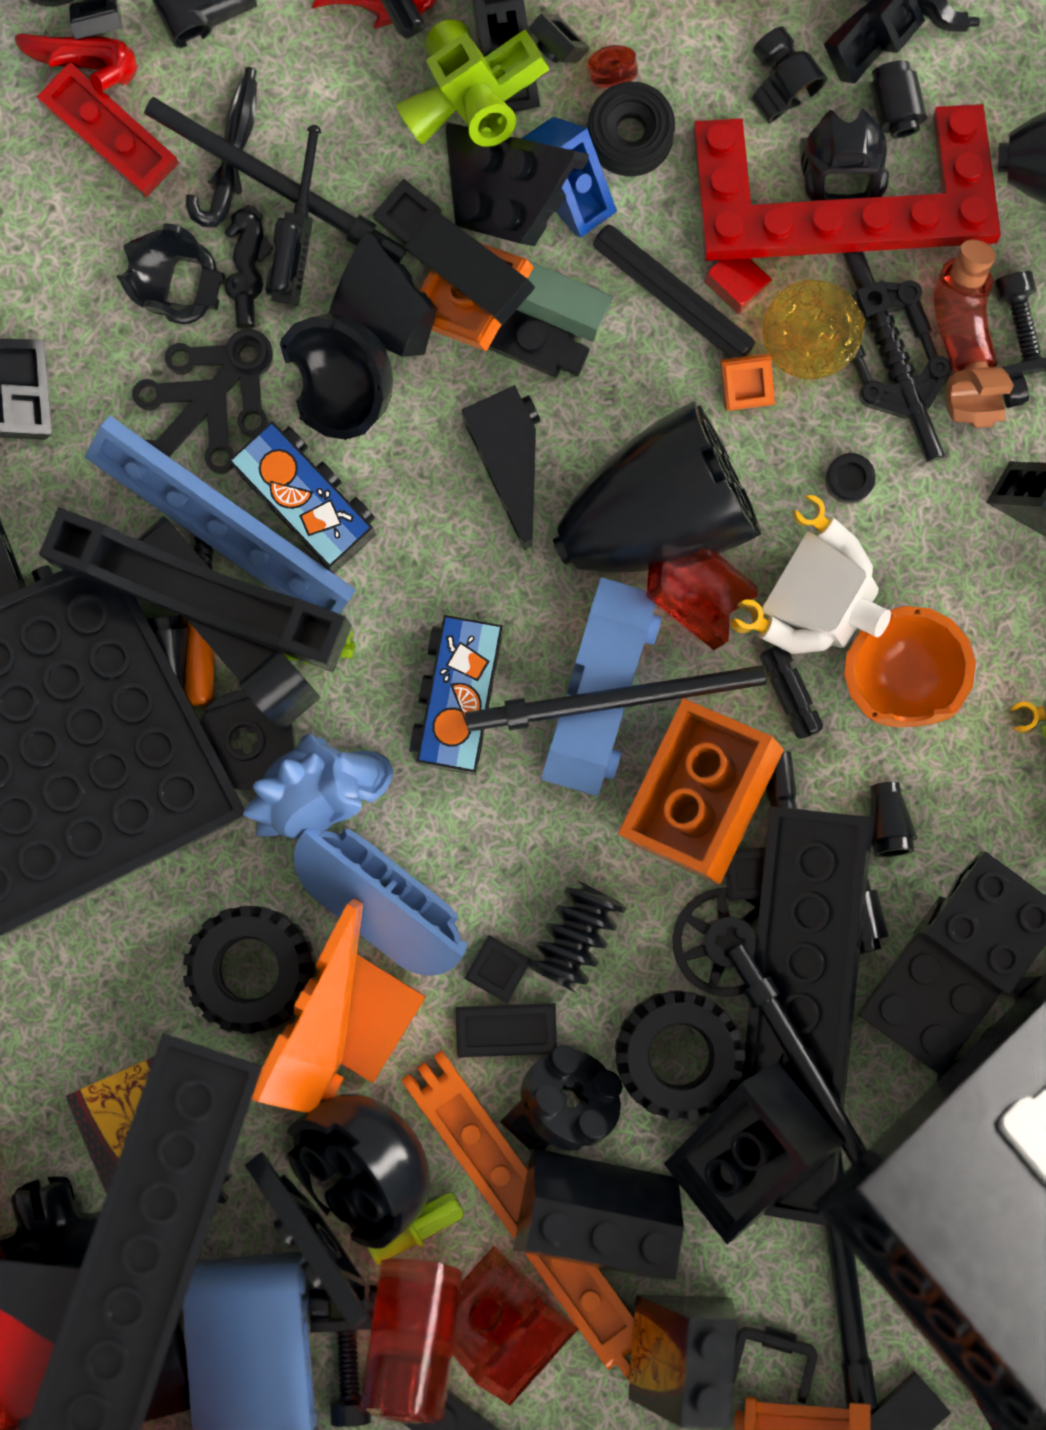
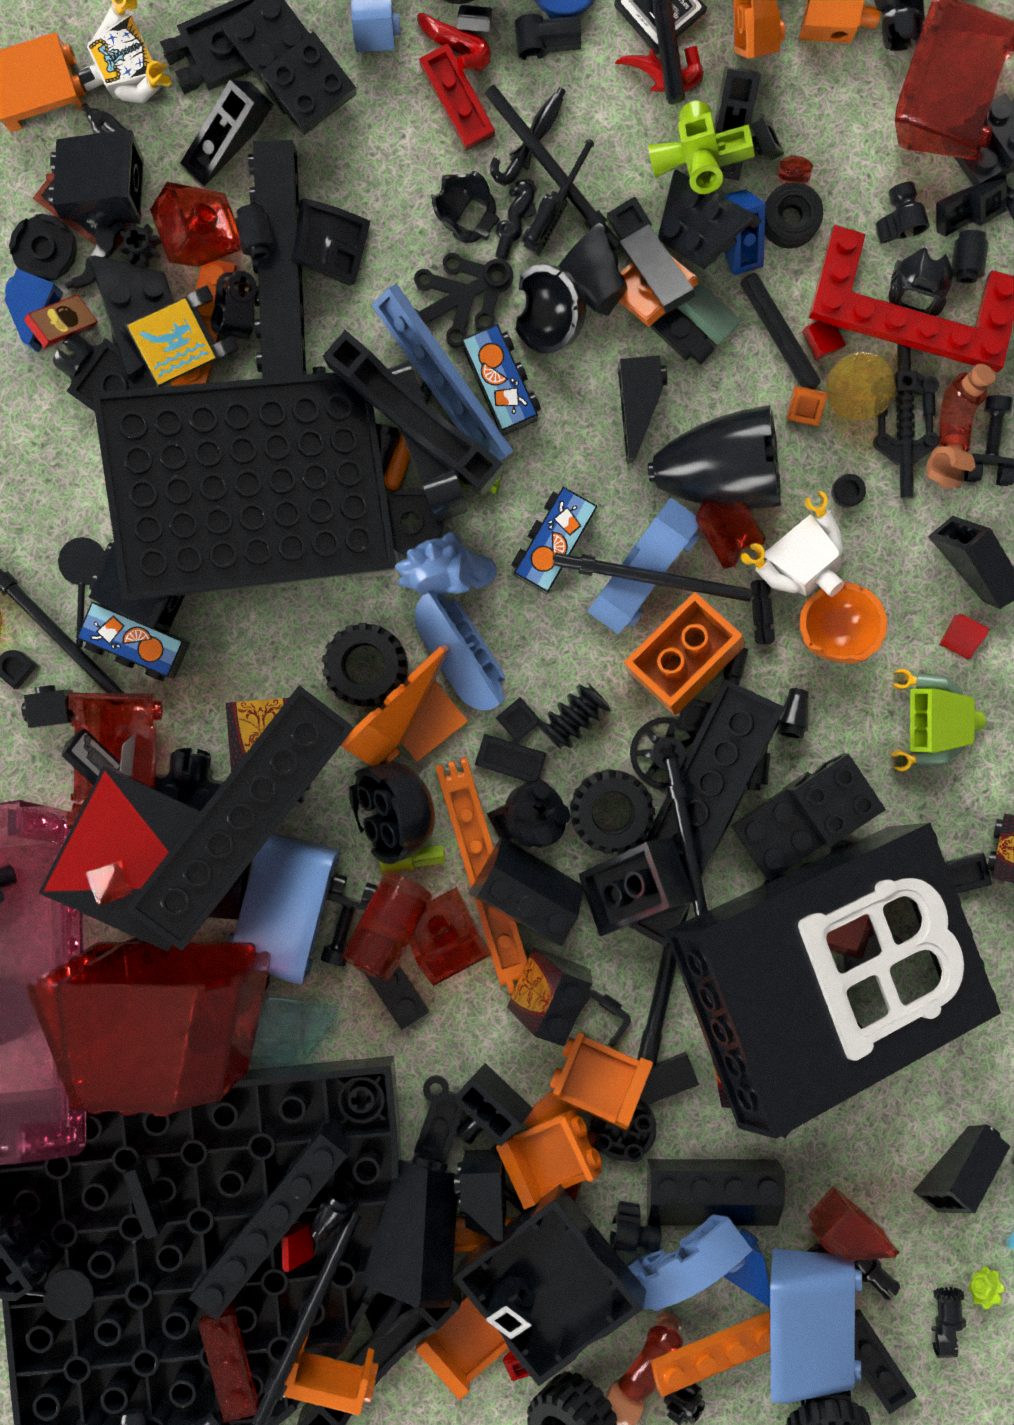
camera: 25 degrees right, 5 degrees up
(303, 1225) = (344, 833): black wing -> none

